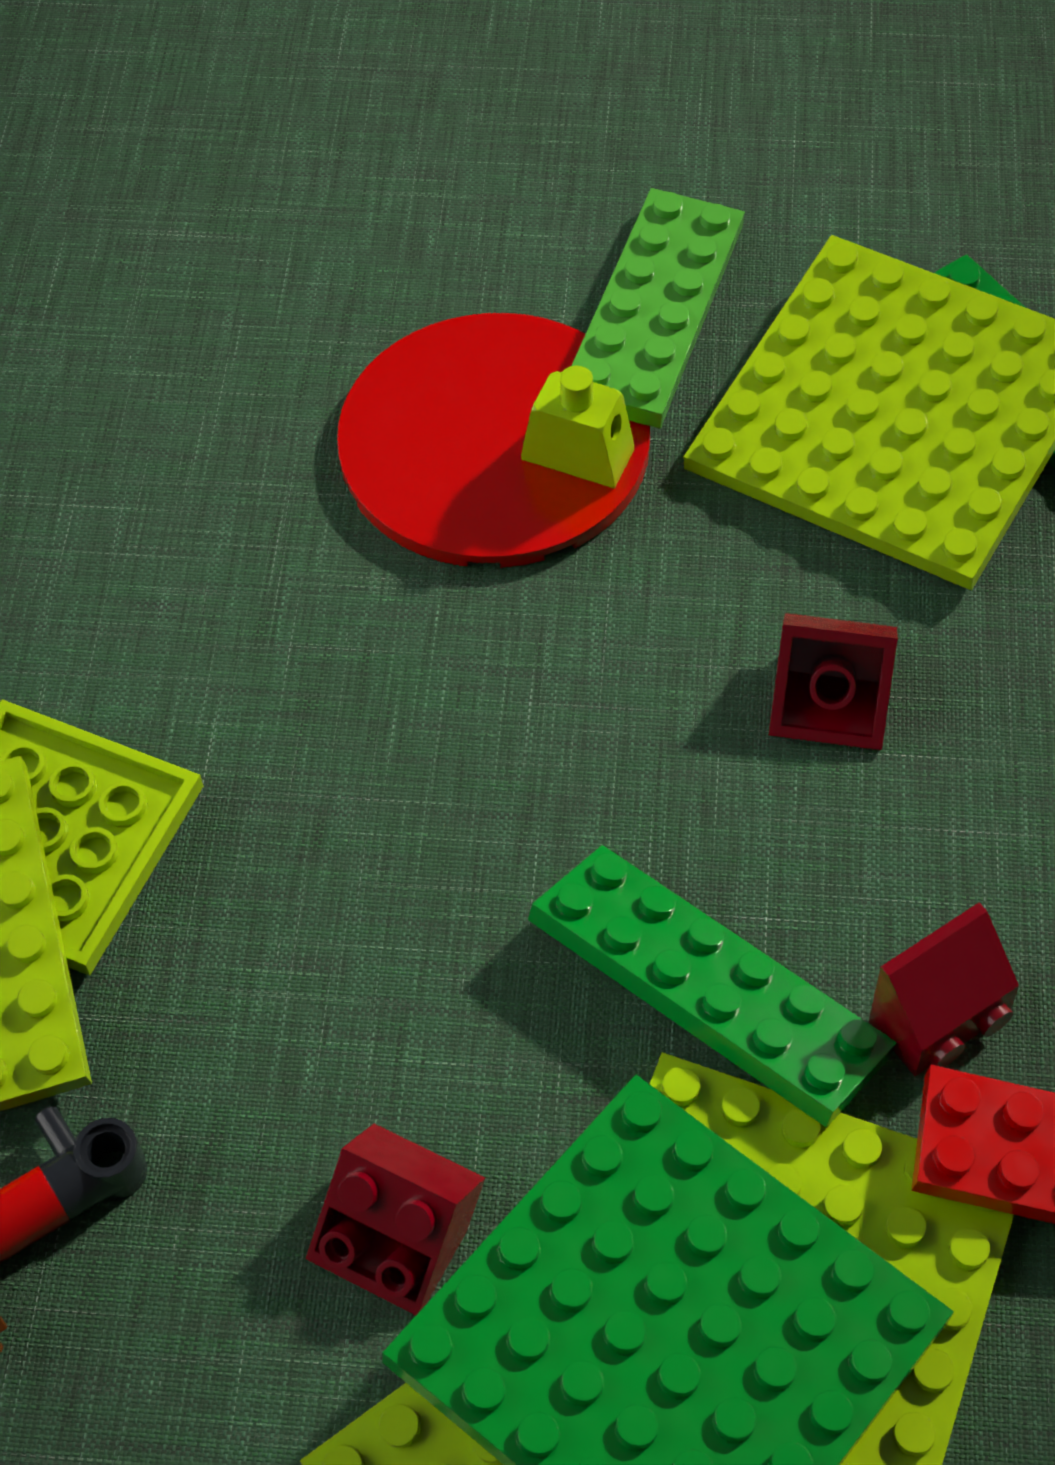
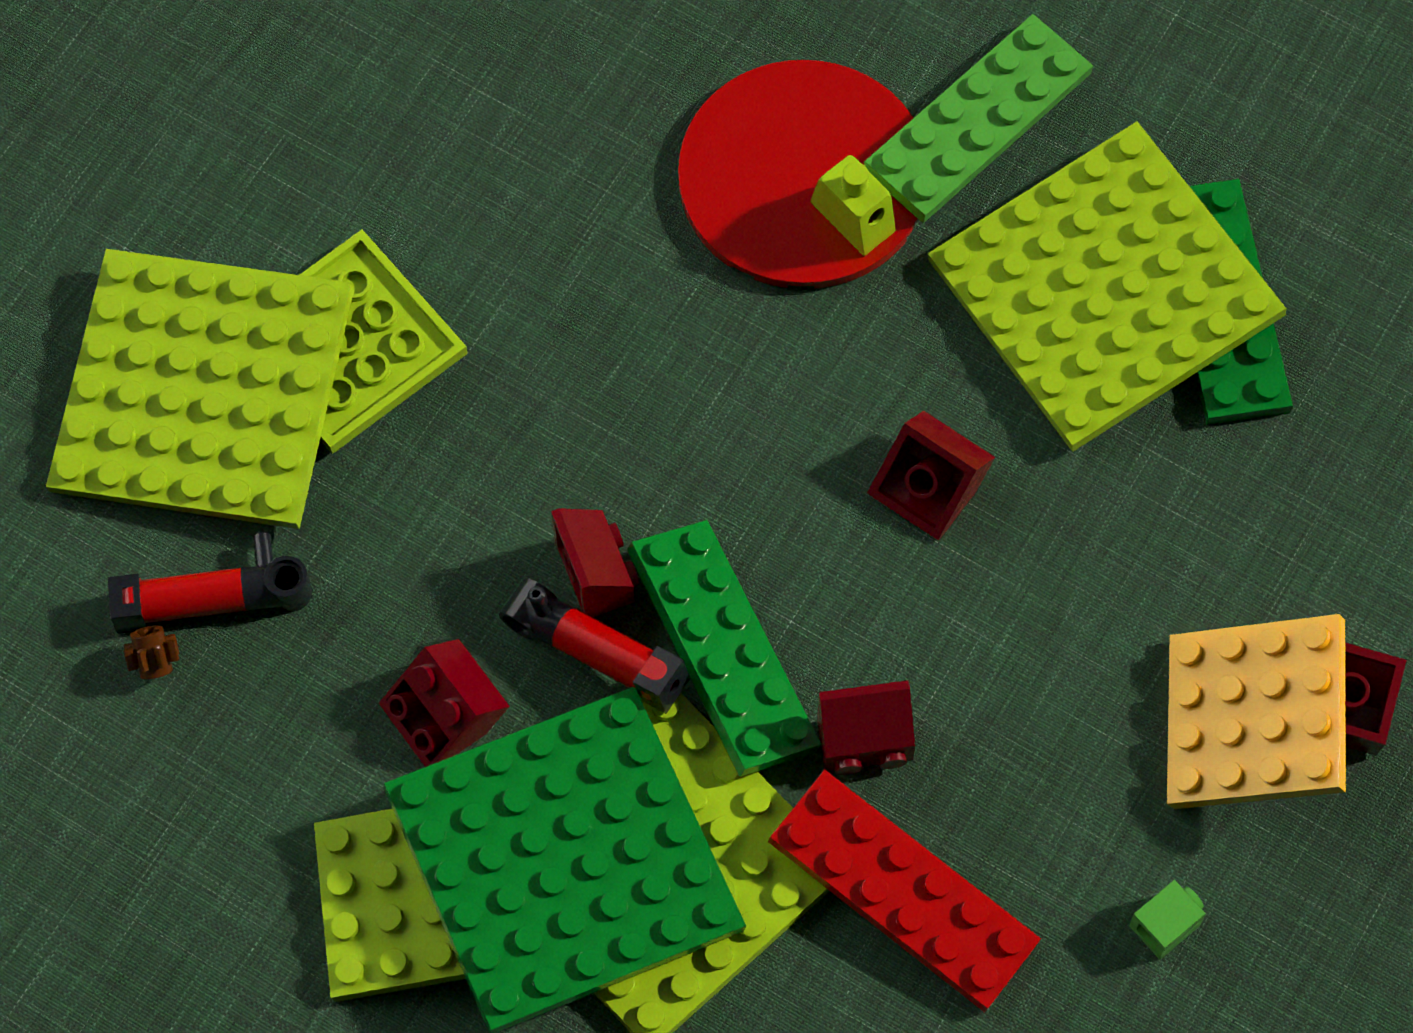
camera: 25 degrees right, 10 degrees up
(457, 1047) = (539, 614): none -> piece
(492, 952) = (593, 560): none -> dark red slope

